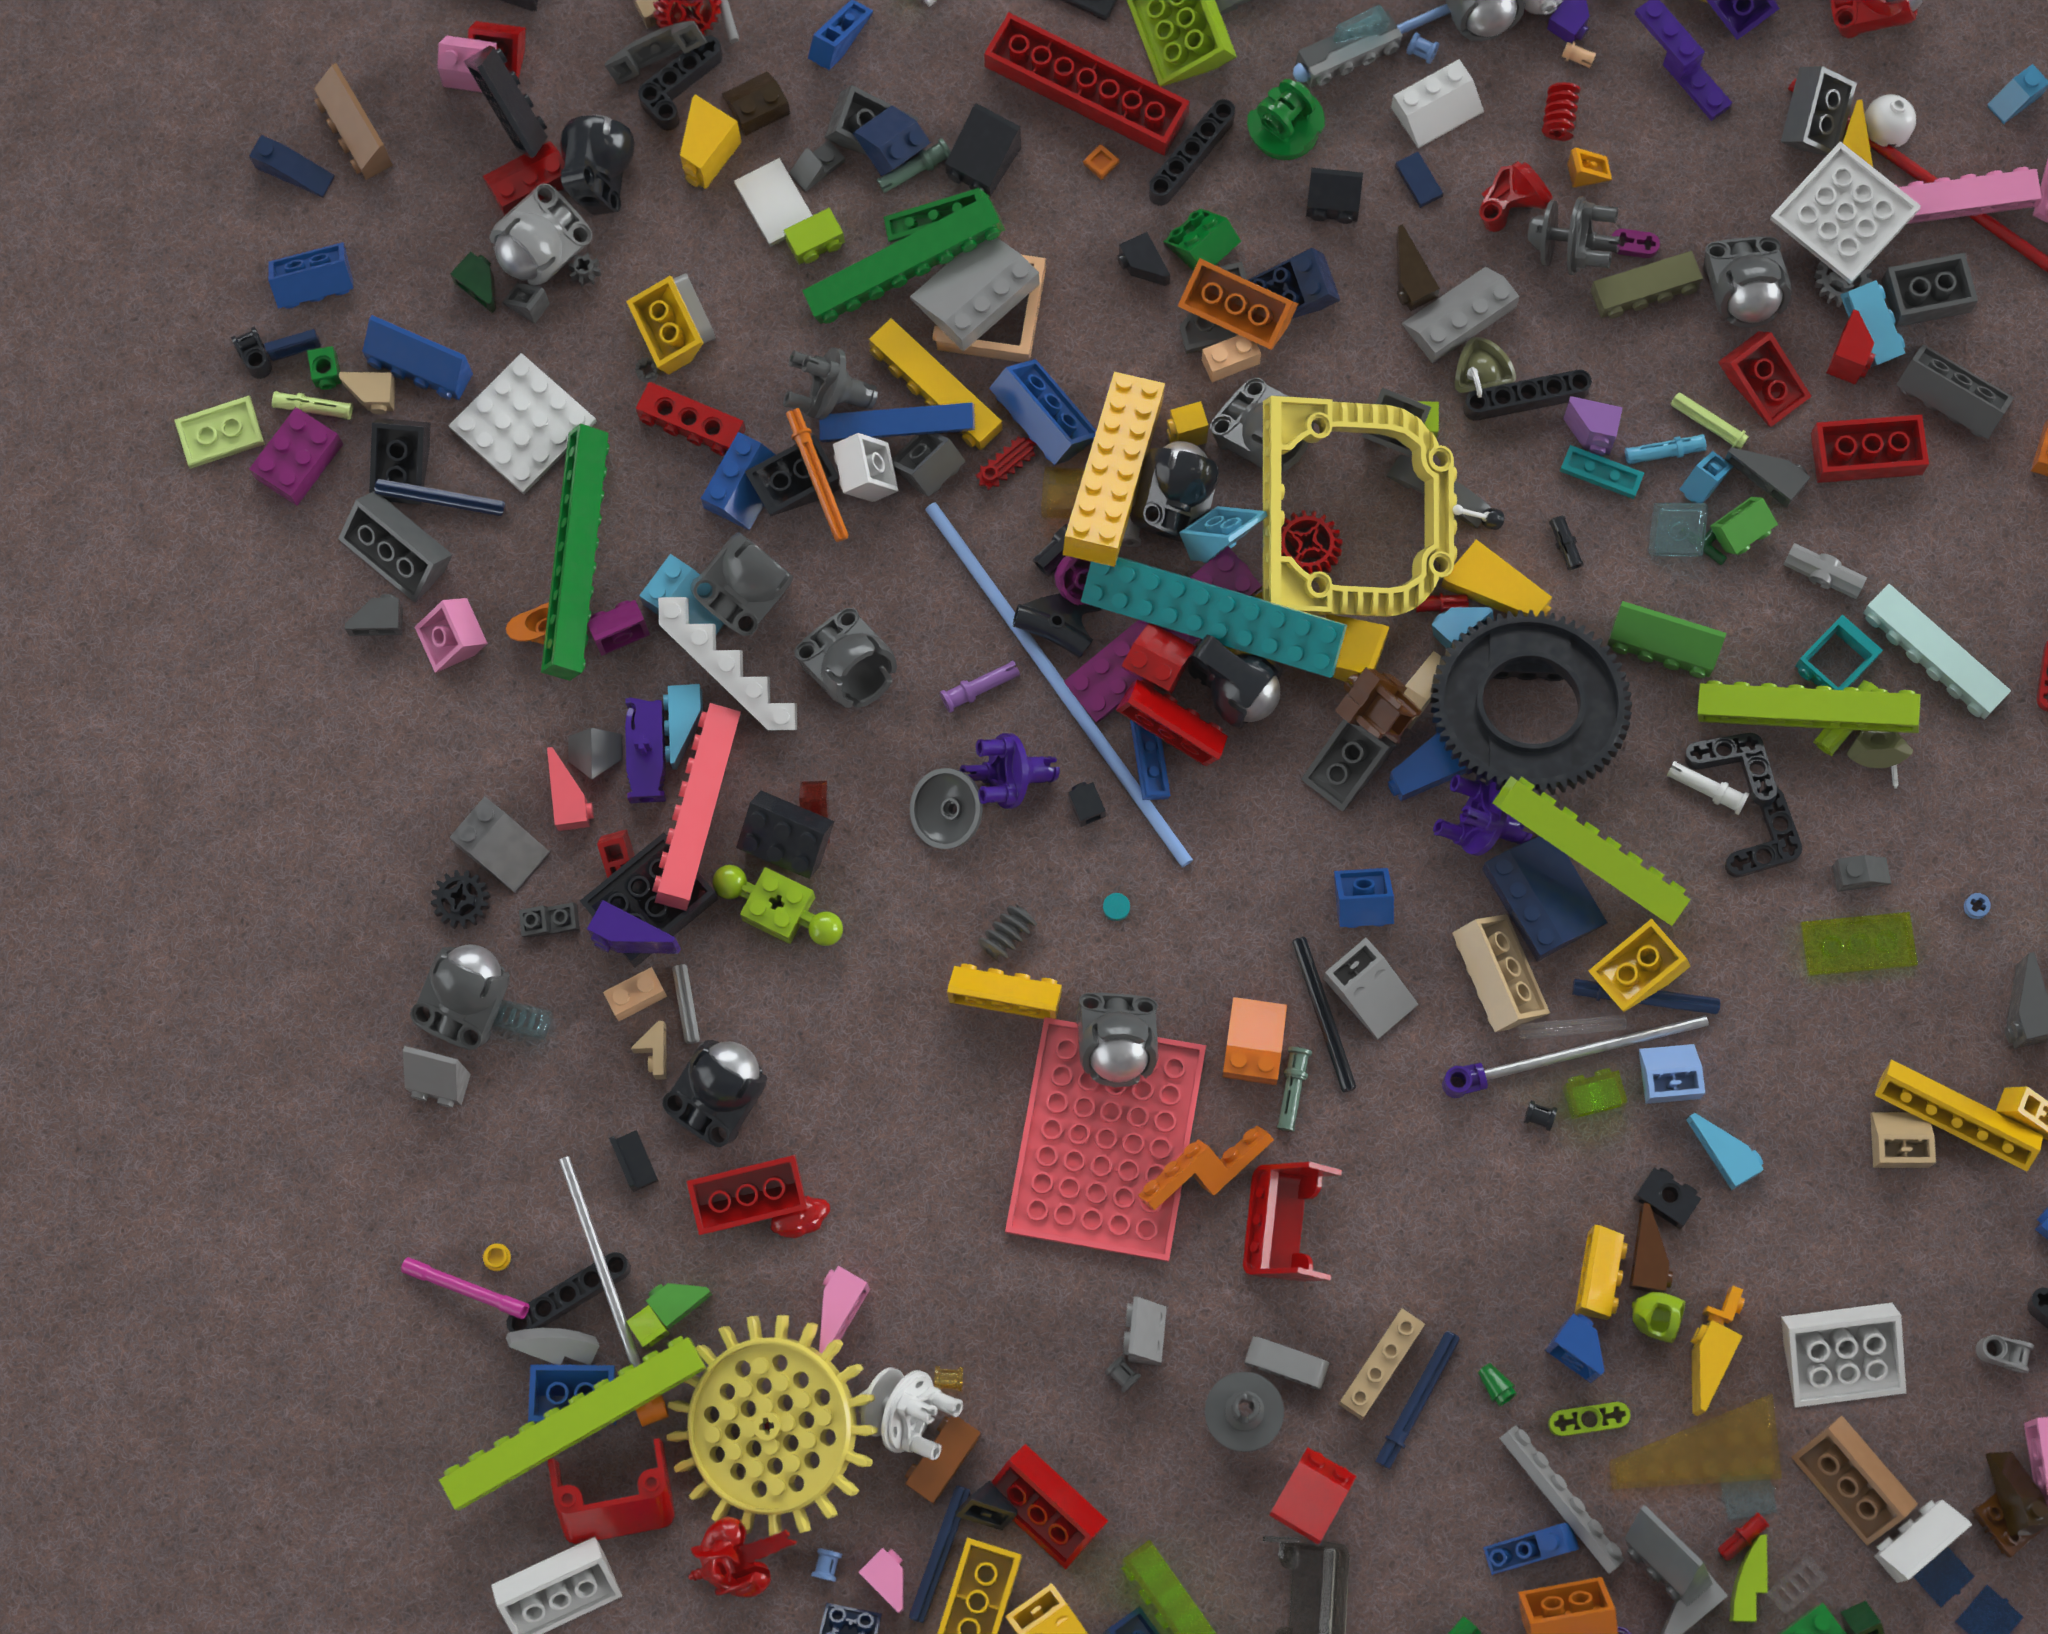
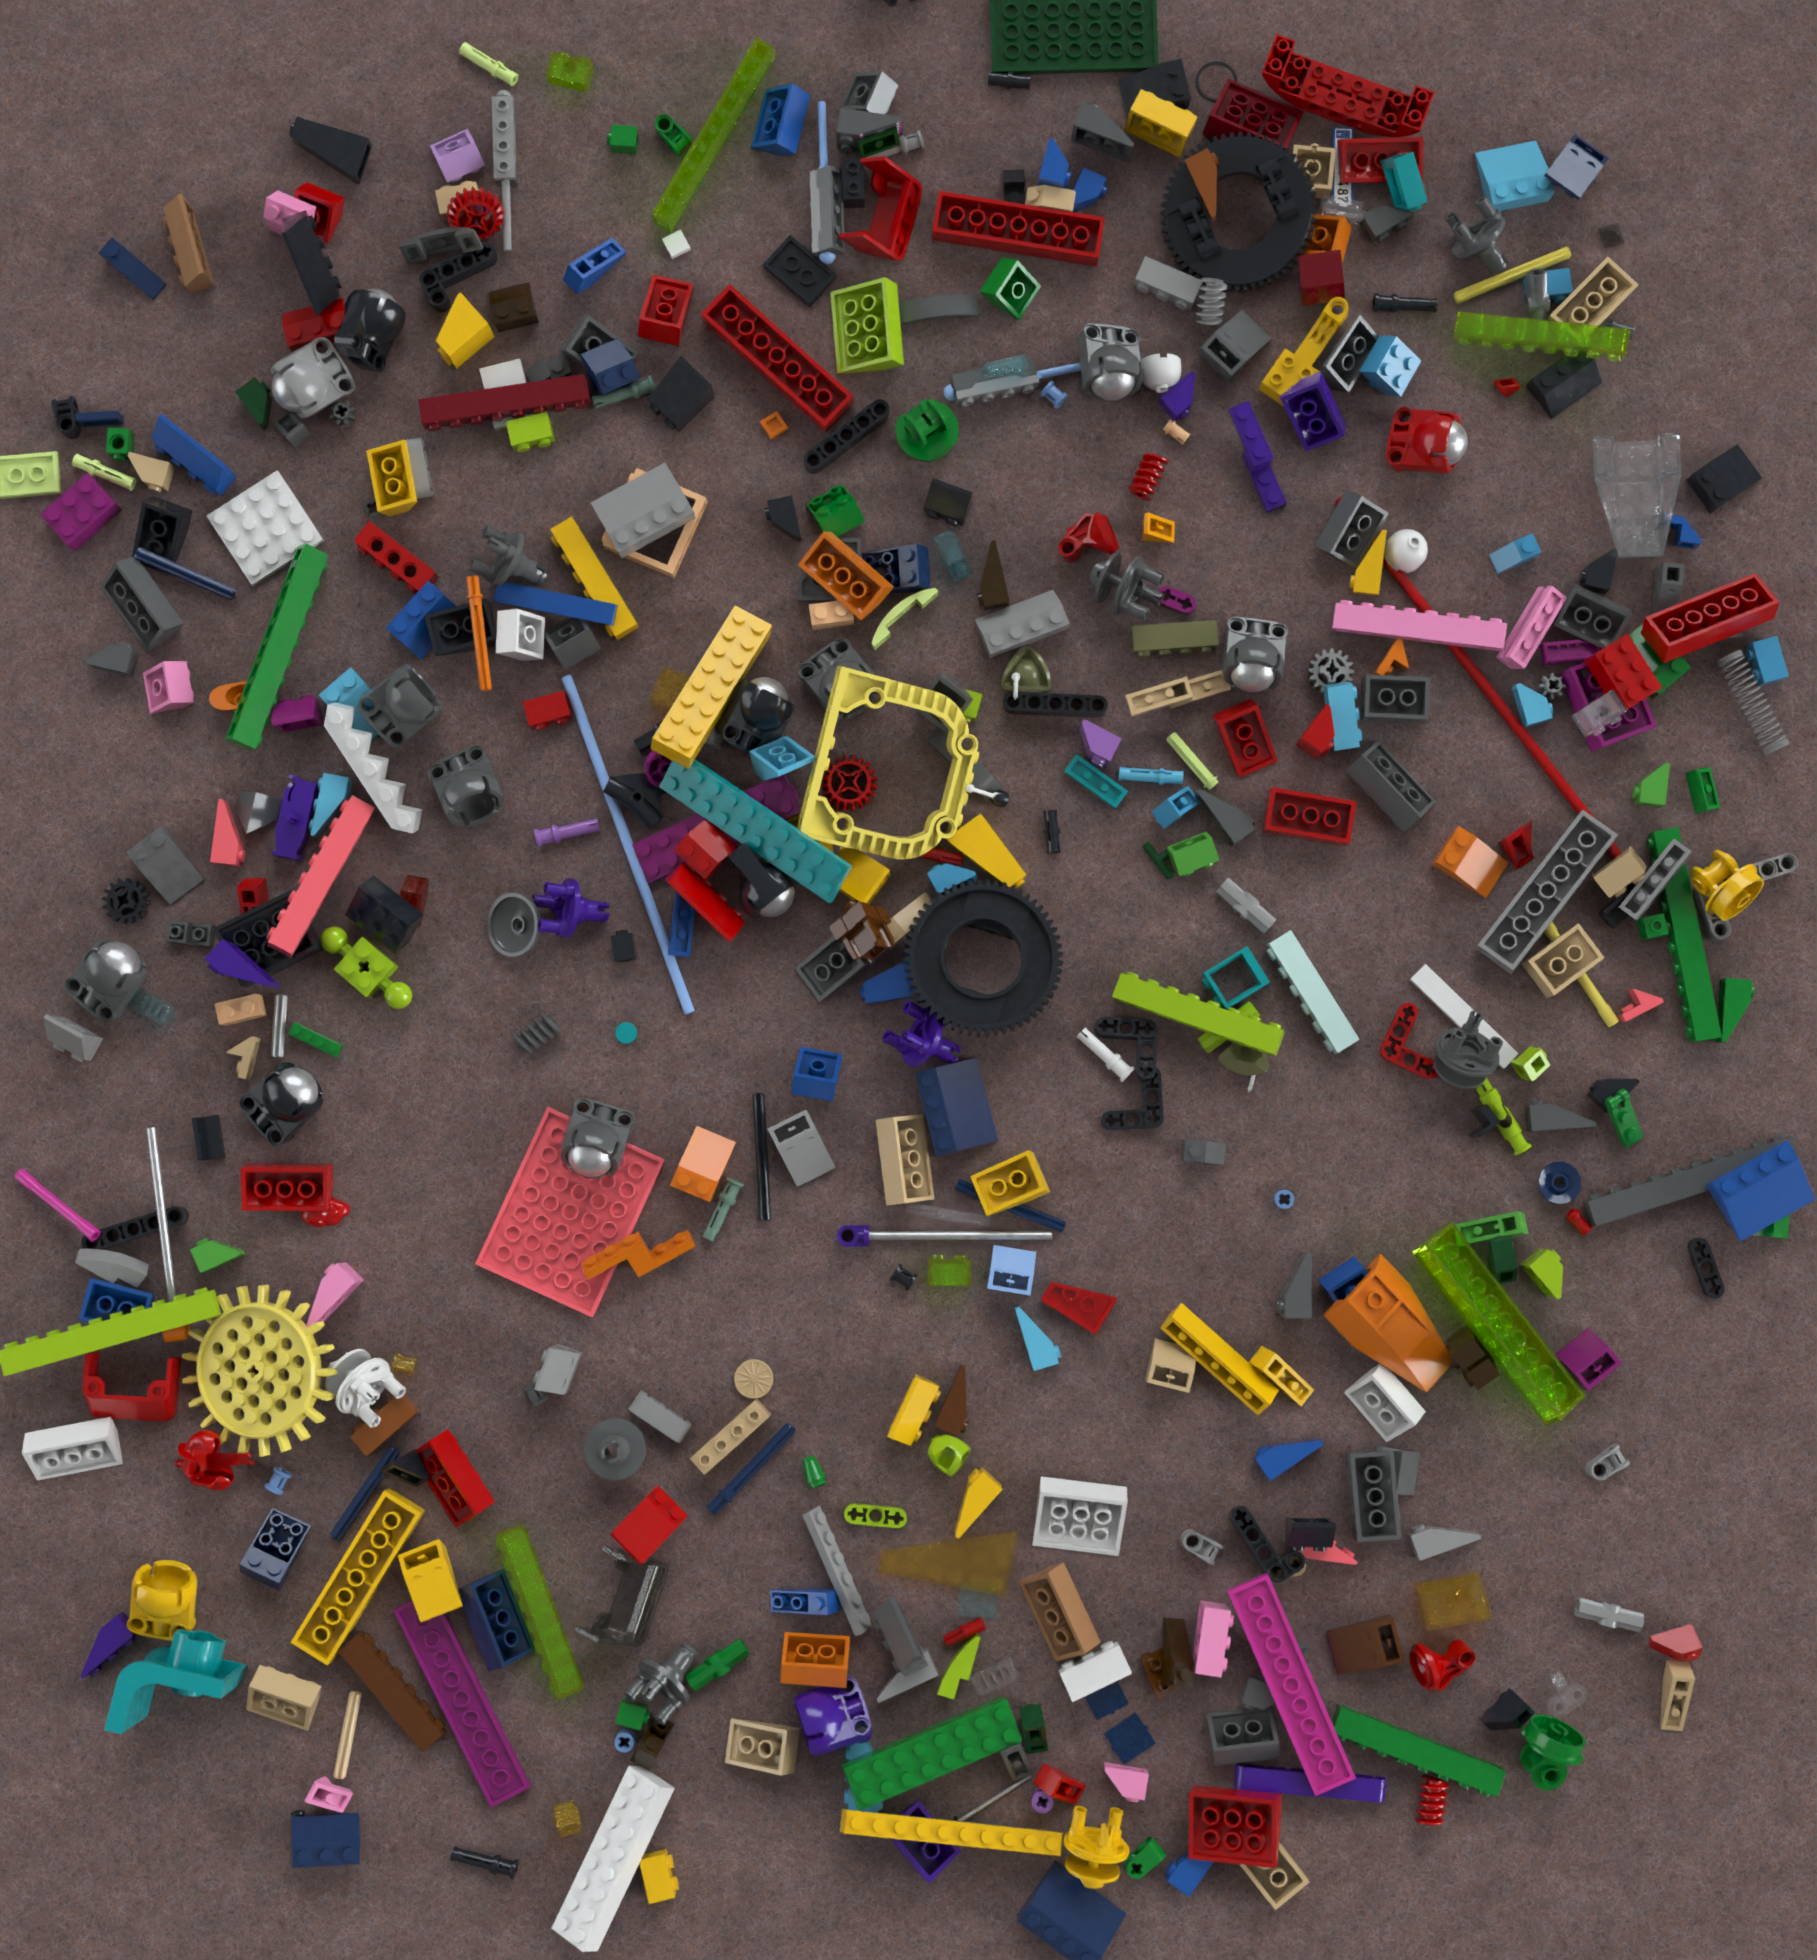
camera: 10 degrees right, 10 degrees up
(310, 276) = (126, 364): blue slope -> none
(496, 1257) = (89, 1185): yellow plate -> none
(647, 1327) = (185, 1270): lime slope -> none
(736, 1008) = (315, 1039): none -> green piece
(776, 208) = (504, 402): none -> dark red brick
(886, 1577) = (320, 1501): bright pink slope -> none
(904, 260) = (593, 472): green brick -> none
(912, 220) = (639, 439): green slope -> none
(919, 549) = (547, 710): none -> red brick
(938, 63) = (665, 310): none -> red slope
(1003, 992) = (522, 1080): yellow slope -> none
(1005, 463) = (633, 656): red piece -> none
(1043, 411) = (673, 621): blue slope -> none
(1188, 424) = (780, 664): yellow brick -> none
(1277, 1220) = (681, 1311): red windscreen -> none
(1331, 313) = (922, 598): none -> yellowish green slope
(1356, 254) = (953, 555): none -> clear light blue slope
(1389, 1288) = (753, 1378): none -> tan wheel
(1419, 179) = (1021, 504): dark blue tile -> none
(1437, 103) = (1052, 445): white slope -> none
(1578, 1347) = (876, 1463): blue slope -> none
(1591, 850) = (995, 1087): lime brick -> none
(1665, 640) = (1105, 931): bright green slope -> none
(1670, 344) = (1176, 693): none -> tan bracket
(1676, 1212) = (985, 1377): black brick -> none
(1678, 529) = (1141, 843): clear light blue tile -> none
(1732, 1304) = (1007, 1457): light orange bracket -> none
(1768, 1096) = (1079, 1305): none -> red wing
(1845, 212) = (1345, 620): white plate -> none
(1858, 944) = (1185, 1205): clear neon green tile -> none
(1914, 244) = (1395, 656): none -> orange slope

